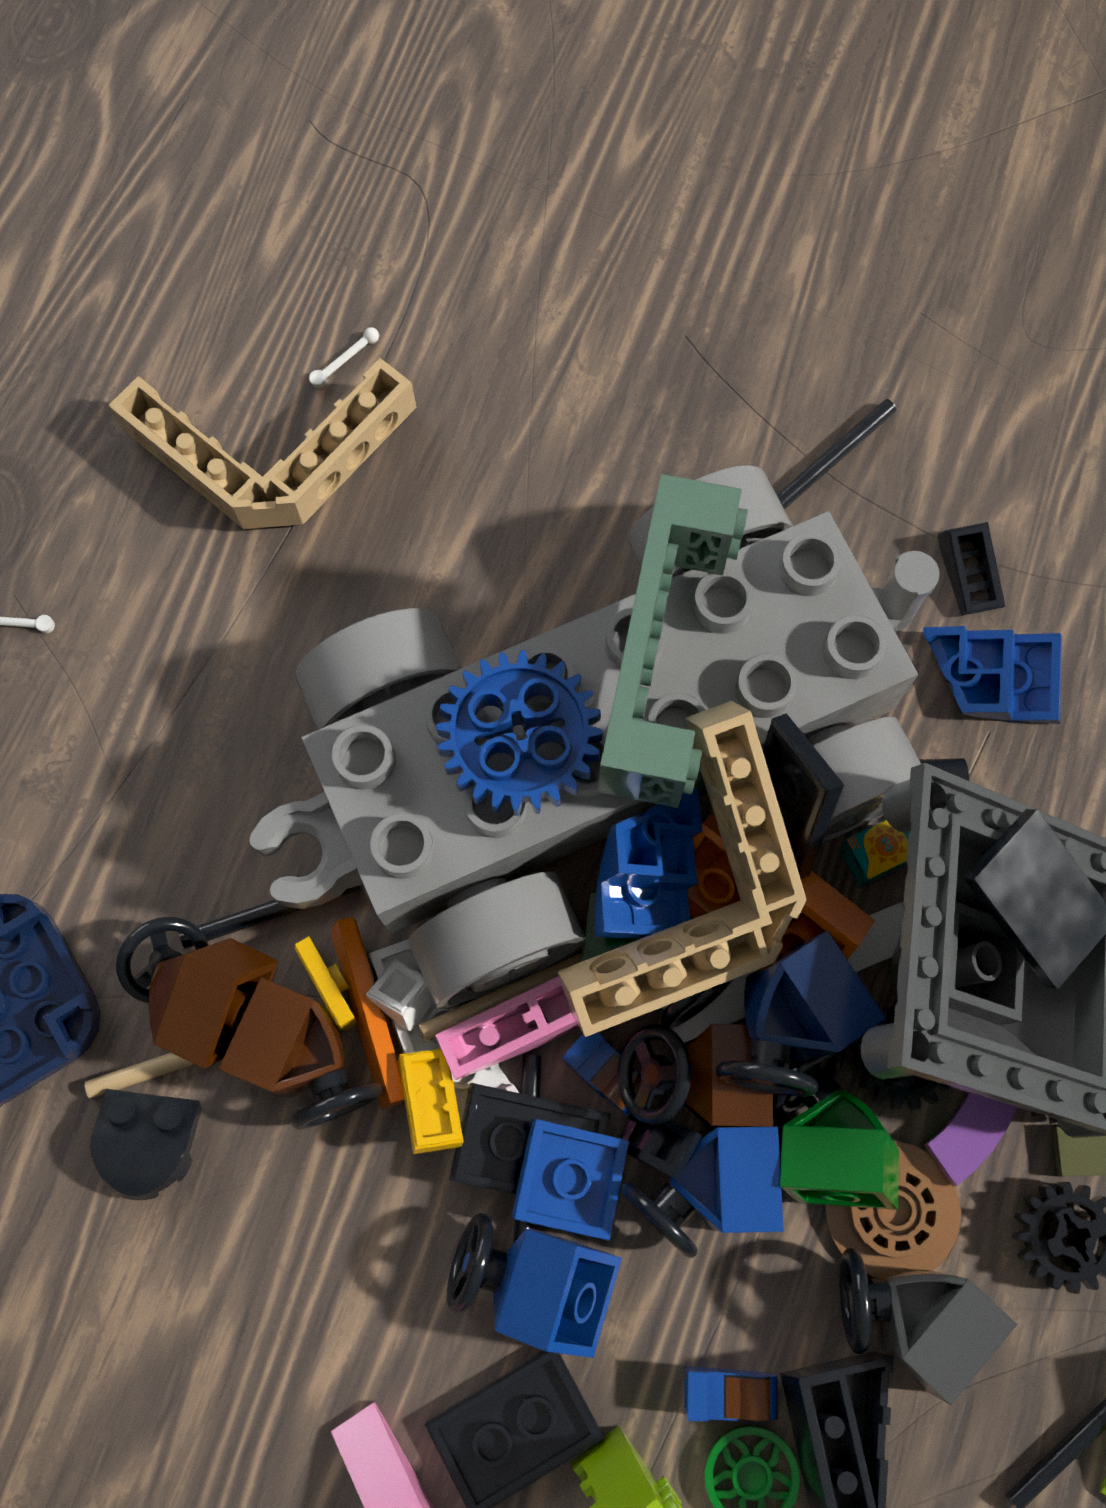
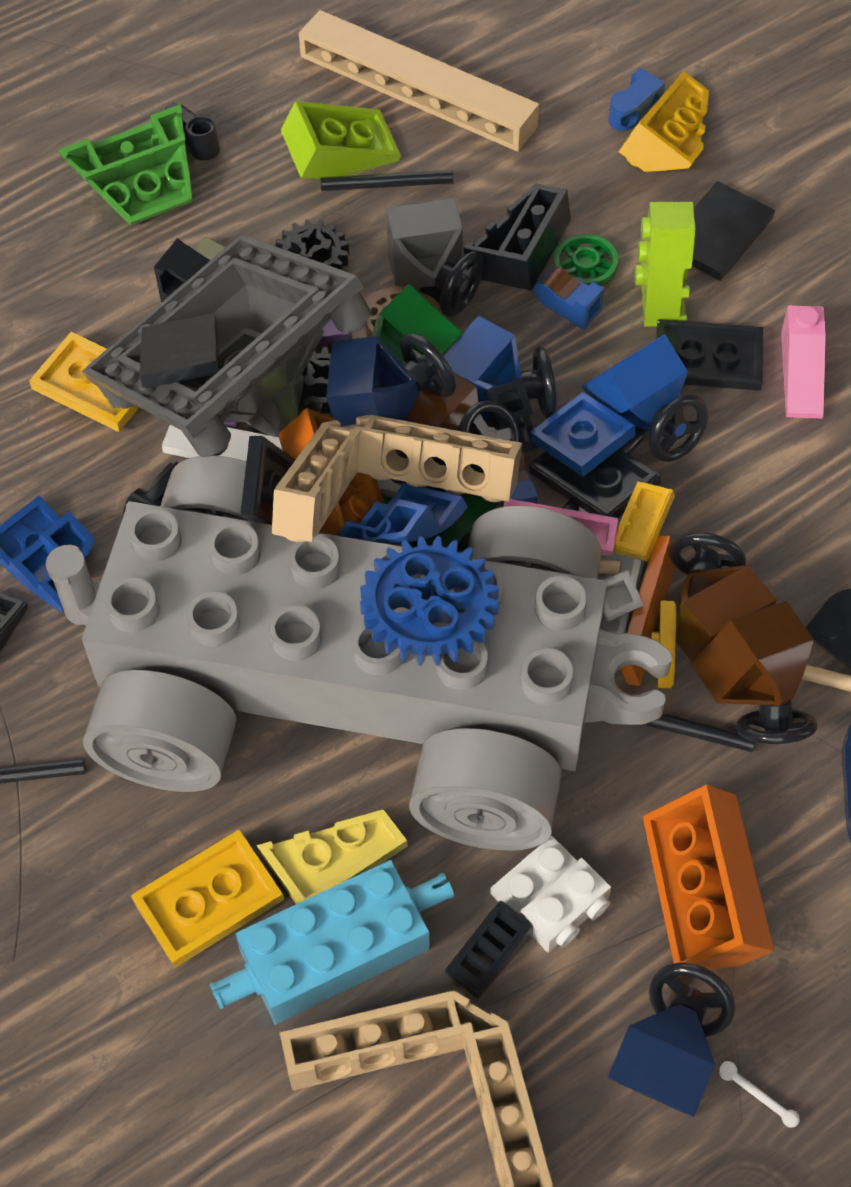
camera: 145 degrees left, 15 degrees down
(85, 568) = (669, 1051): none -> dark blue piece
(146, 765) = (707, 880): none -> orange slope
(267, 665) = (553, 893): none -> white plate
(297, 617) = (510, 919): none -> black slope
(319, 378) = (345, 1141): white hinge -> none
(433, 499) = (332, 941): none -> medium azure brick
(492, 570) = (332, 855): none -> light yellow wing
(568, 470) = (207, 898): none -> yellow plate
(693, 529) = (216, 649): sand green plate -> none

